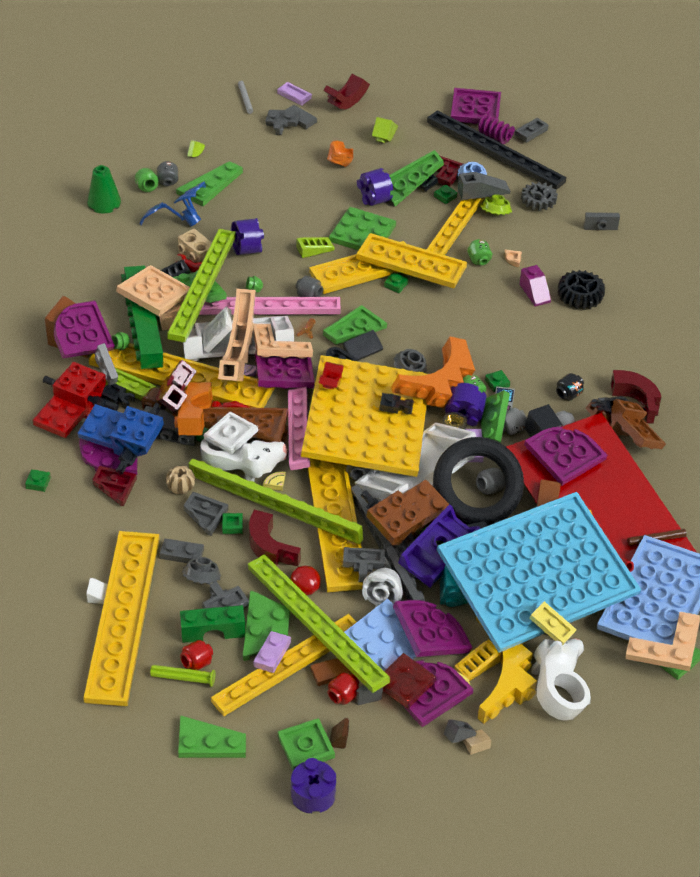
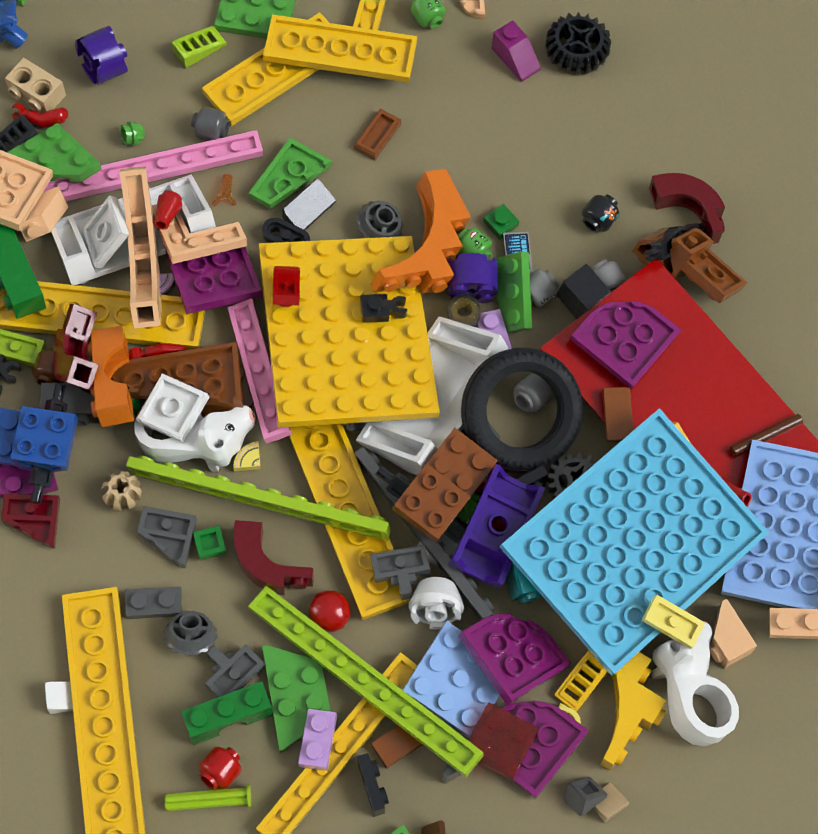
camera: 15 degrees left, 20 degrees up
(201, 286) = (64, 164): lime plate -> none
(264, 322) = (168, 206): none -> red cone
(304, 696) = (376, 796): none -> black plate
(343, 688) = (423, 771): red head -> none
(396, 282) = (325, 84): green plate -> none
(424, 316) = (377, 134): none -> dark orange tile
(596, 656) = (730, 637): none -> light nougat slope

